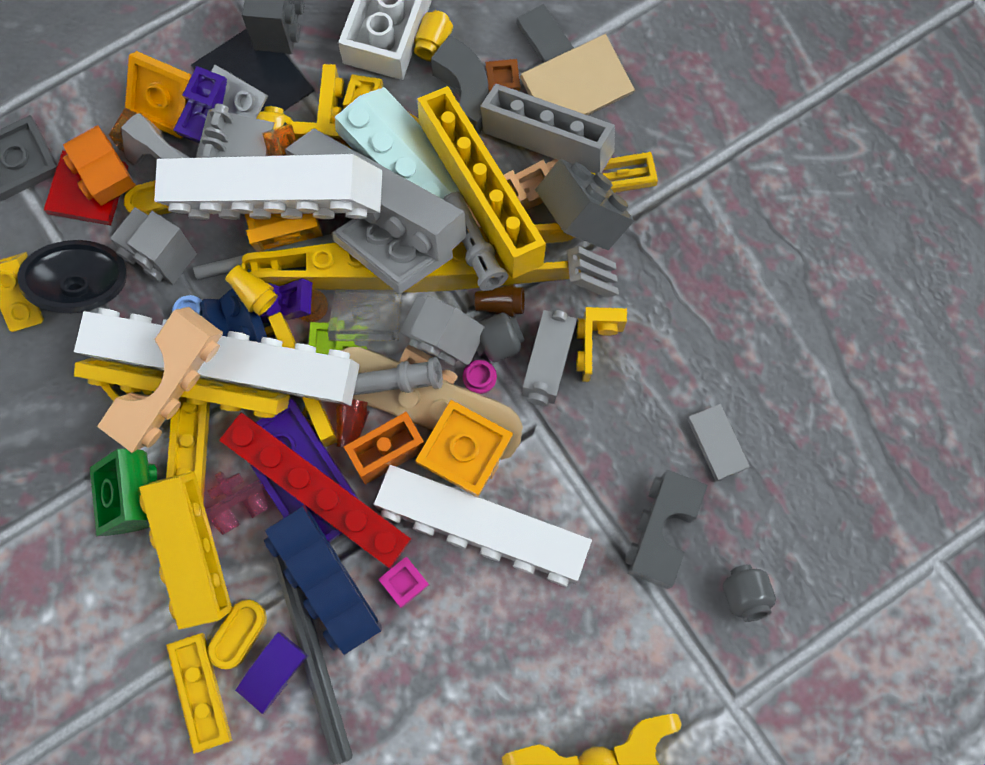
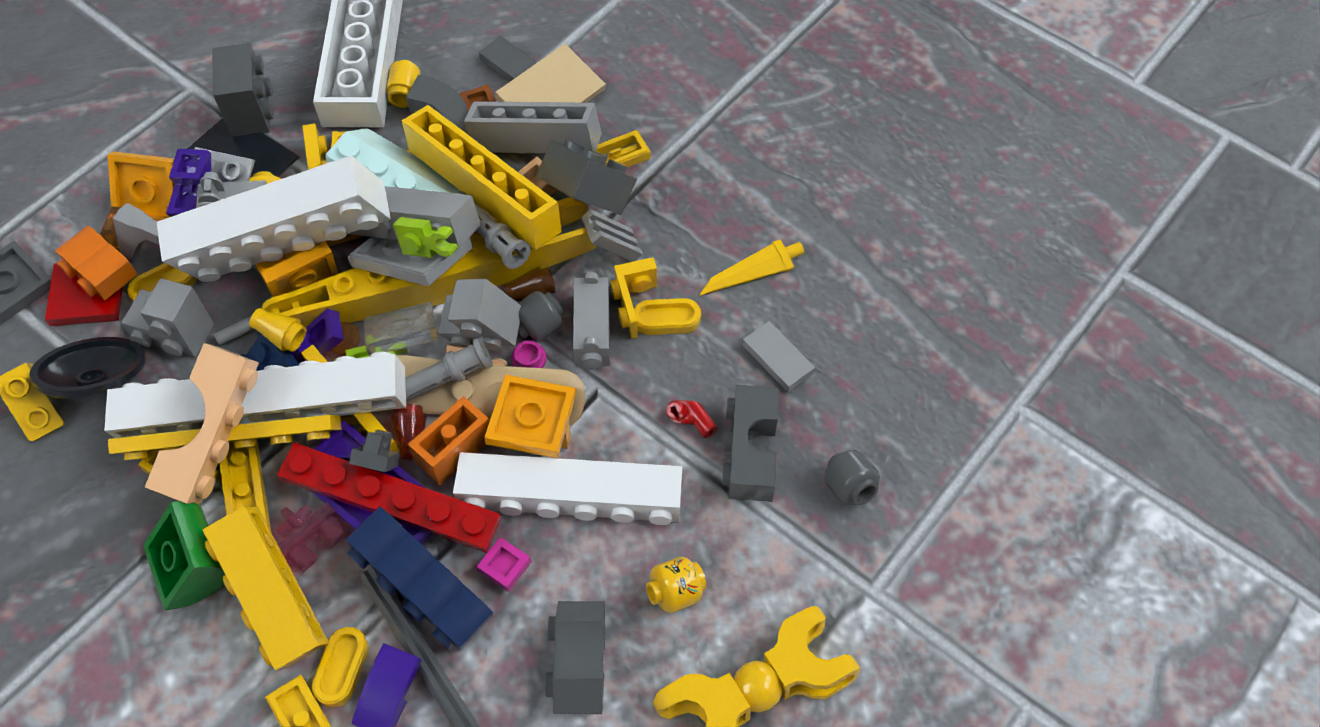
camera: 15 degrees left, 15 degrees down
(312, 448) = (376, 452): none -> dark grey tile
(402, 243) = (420, 240): none -> lime plate
(447, 694) = (578, 657): none -> dark grey brick
(554, 650) = (676, 584): none -> yellow head
(617, 479) = (693, 414): none -> red arm
(623, 368) = (667, 316): none -> yellow tile
(738, 336) = (765, 262): none -> yellow bar

